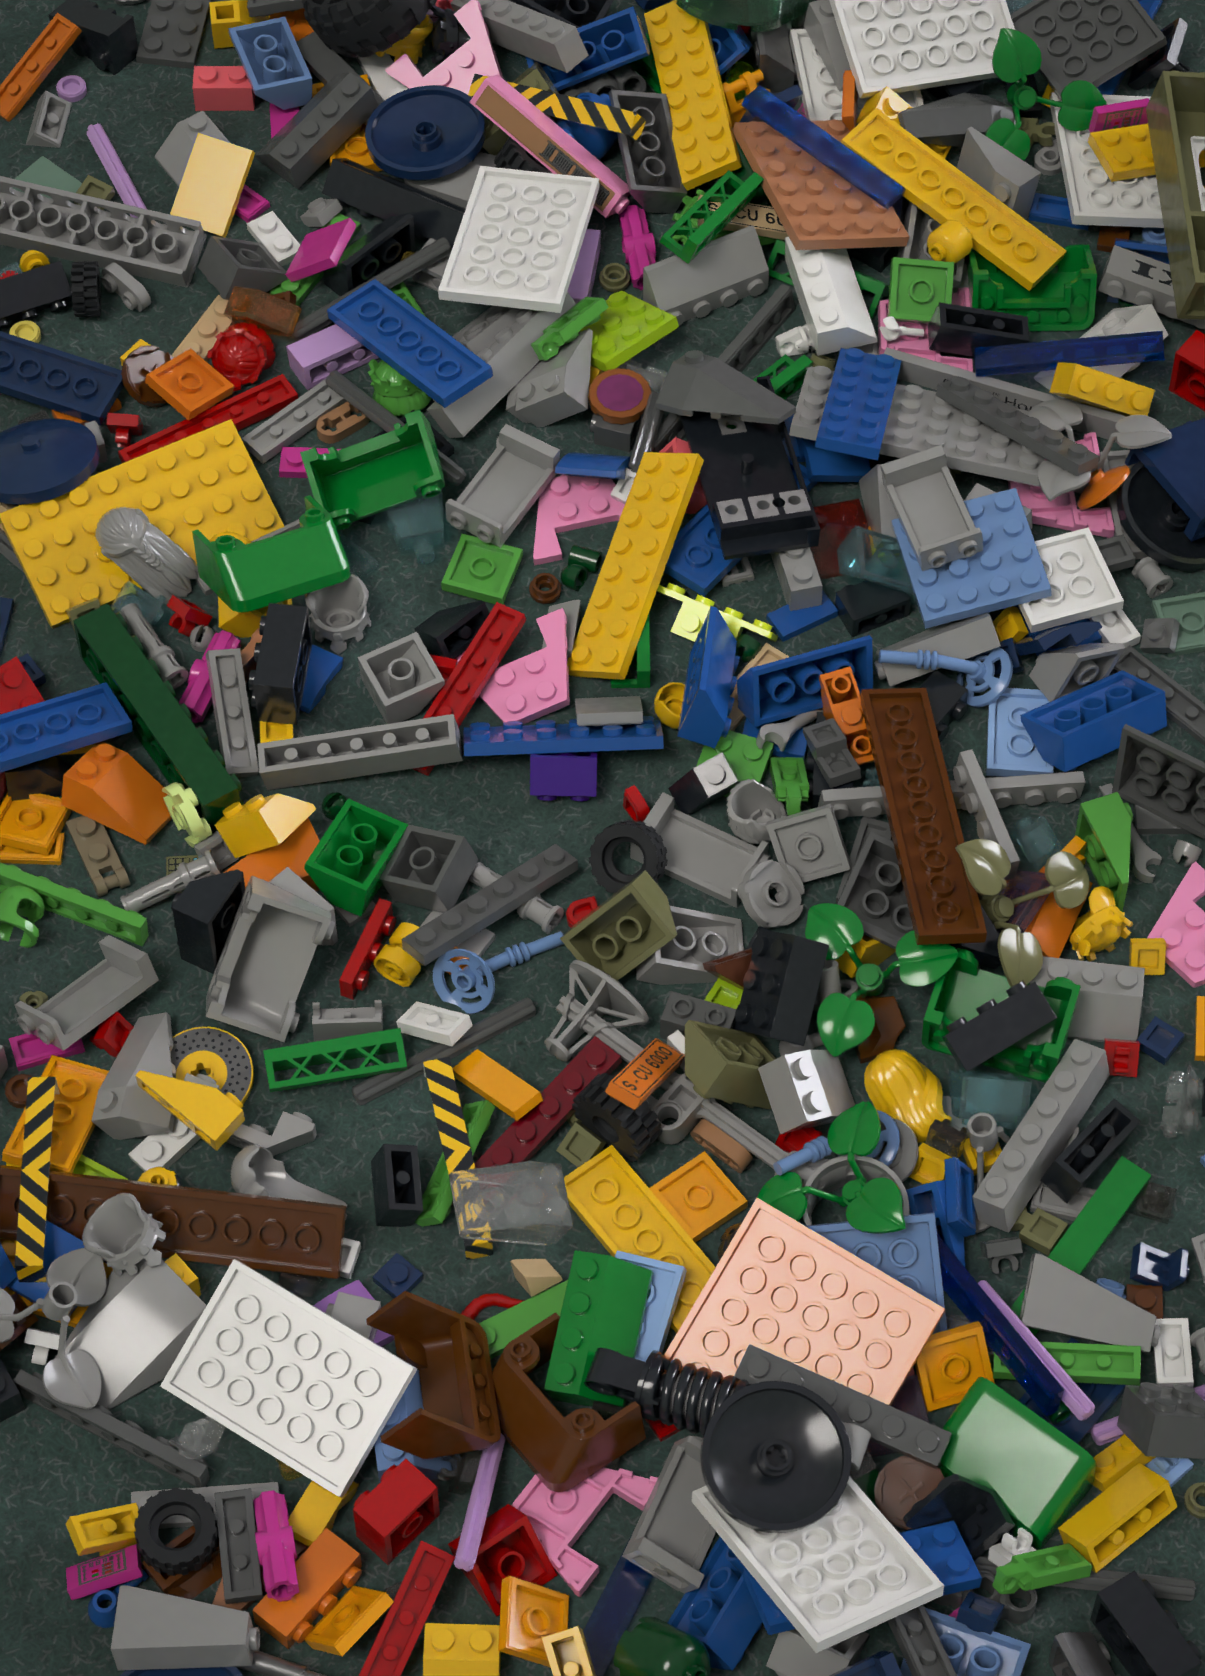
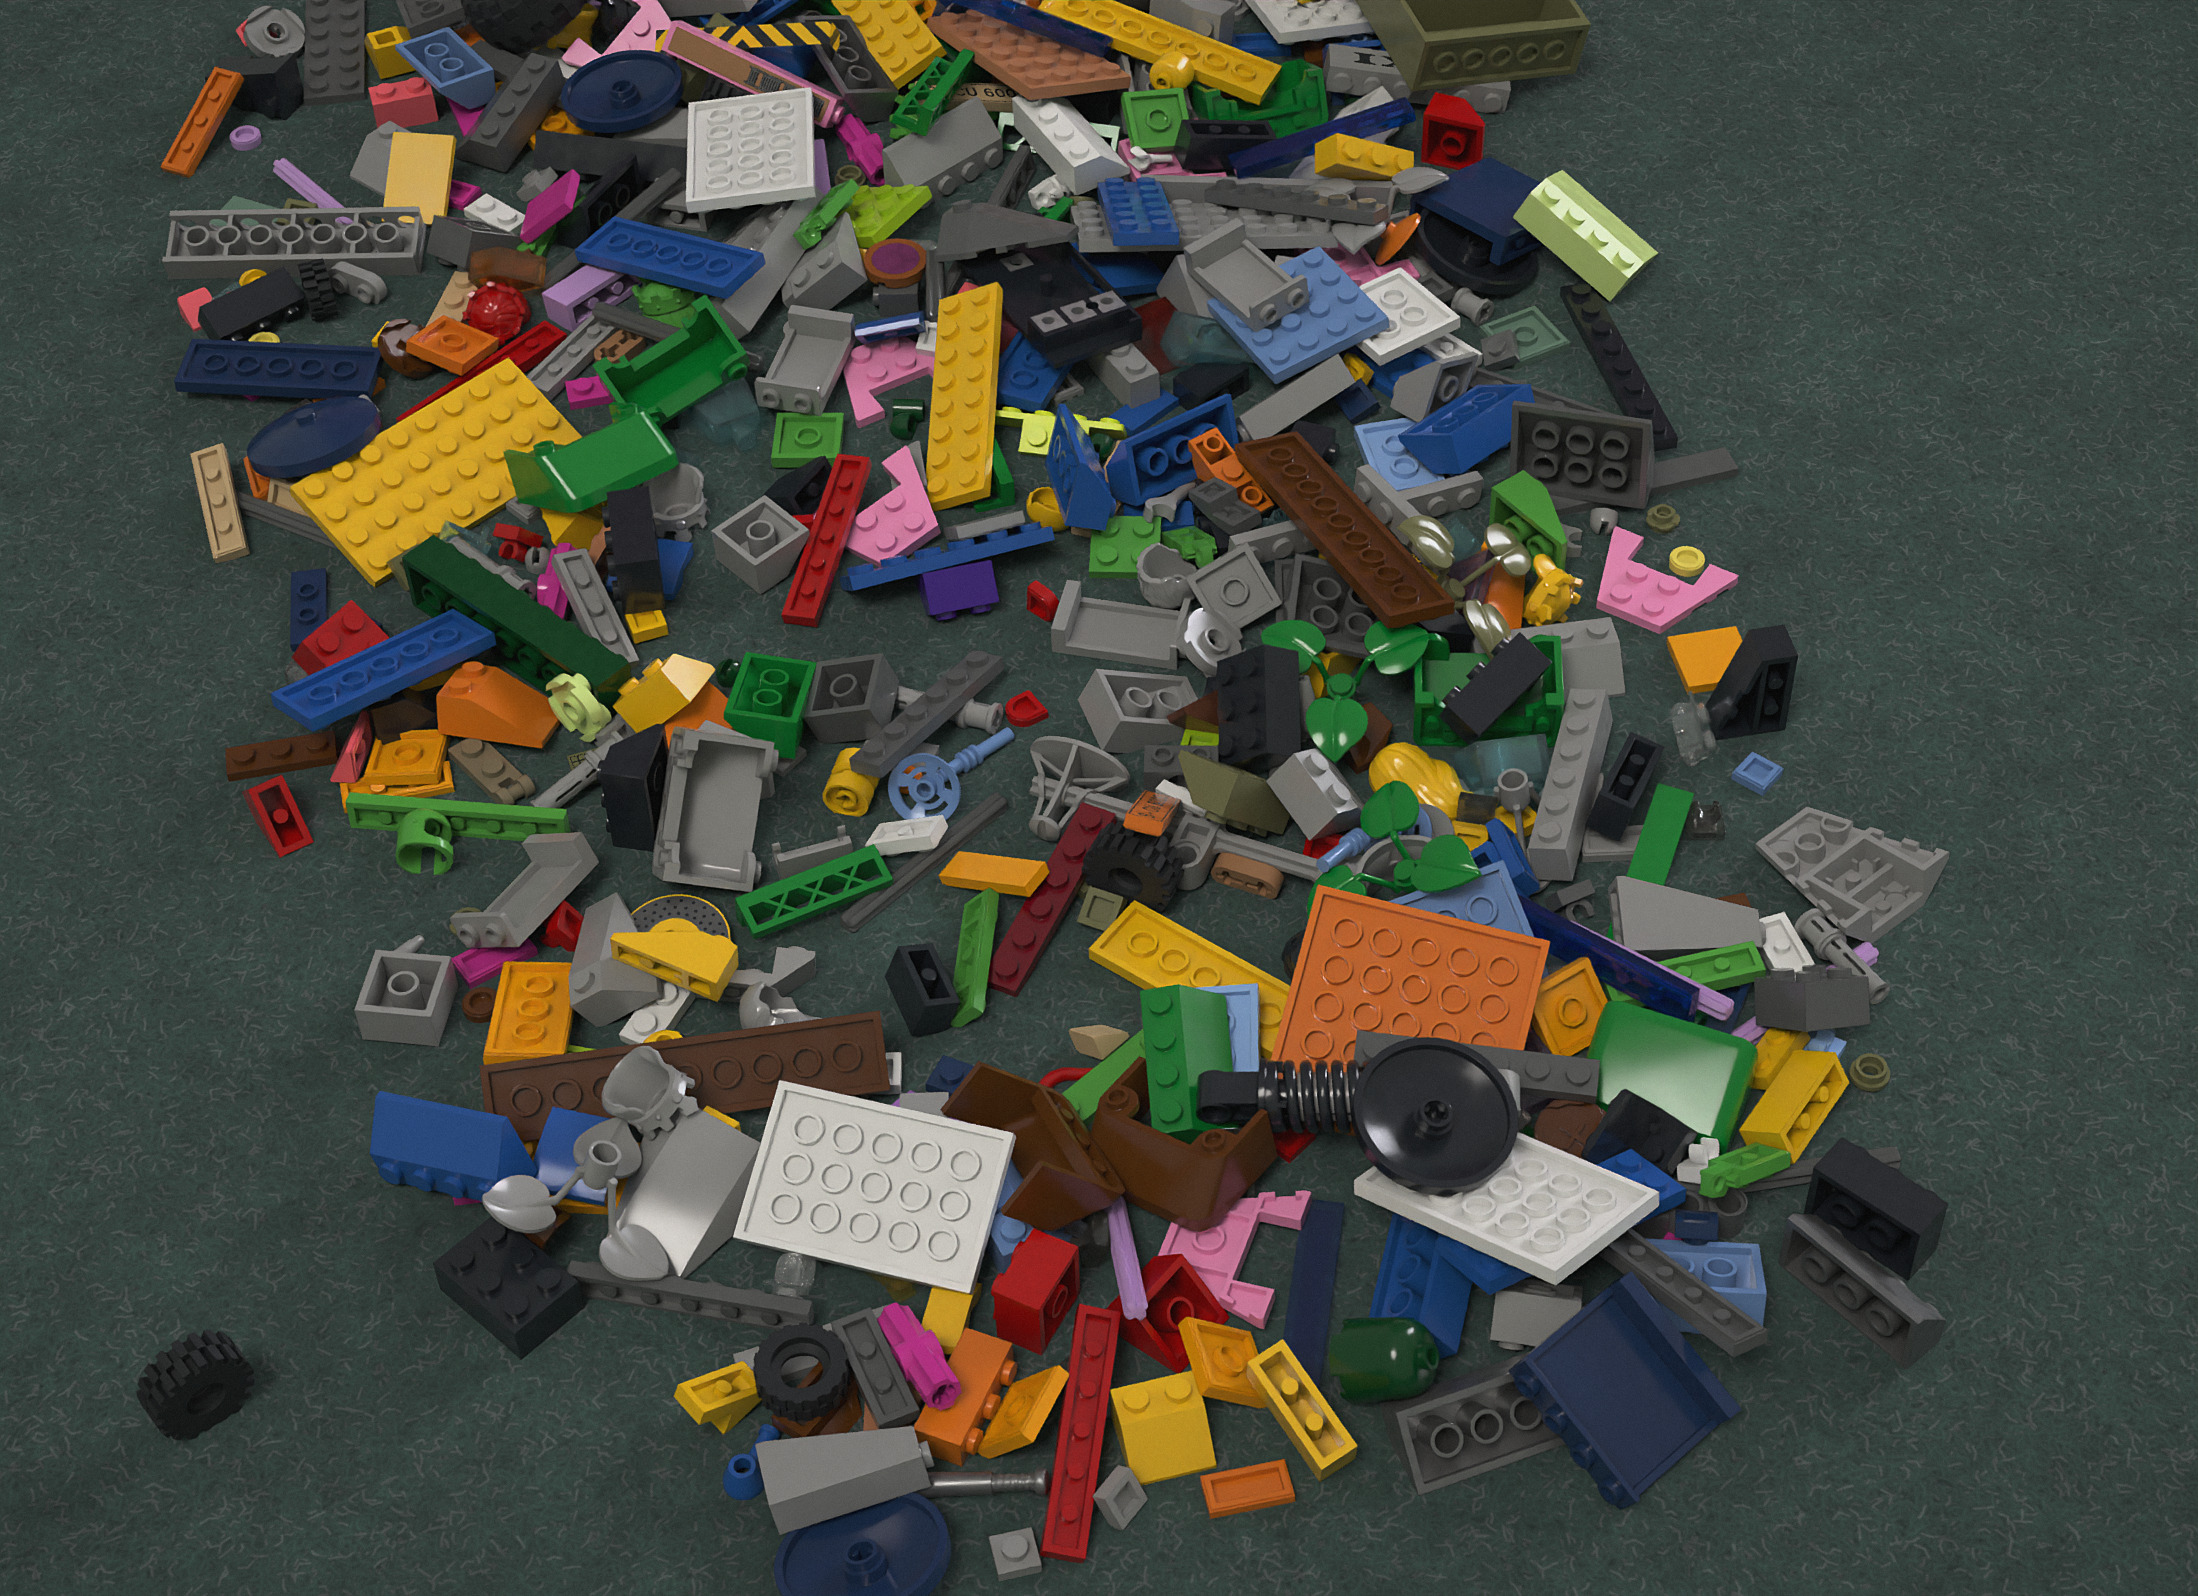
camera: 15 degrees left, 10 degrees down
(35, 1179) = (531, 1071): sticker -> none
(43, 1342) = (586, 1231): white tile -> none
(49, 121) = (230, 168): light grey slope -> none
(104, 1572) = (730, 1439): dark pink tile -> none
(124, 427) = (395, 396): red tile -> none
(145, 553) = (456, 489): light grey hair -> none
(359, 752) = (745, 610): light grey brick -> none
(367, 948) = (812, 784): red plate -> none
(452, 1133) = (980, 949): sticker -> none
(512, 1203) = (1054, 972): clear slope -> none
(545, 580) = (877, 442): reddish brown plate -> none
(623, 928) = (1077, 696): olive slope -> none
(627, 831) = (1029, 630): black tyre -> none
(671, 1531) = (1340, 1229): light grey panel -> none
(699, 1196) = (1244, 925): light orange plate -> none
(704, 784) = (1107, 562): black slope -> none
(975, 670) = (1338, 411): medium blue dish -> none
(1040, 1230) = (1600, 870): olive plate -> none
(1057, 637) = (1409, 360): dark blue slope -> none
(1122, 1057) = (1622, 704): red tile -> none
(1148, 954) = (1606, 606): yellow plate -> none
(1158, 1267) = (1735, 877): dark blue bracket -> none
(1160, 1040) = (1647, 682): dark blue plate -> none

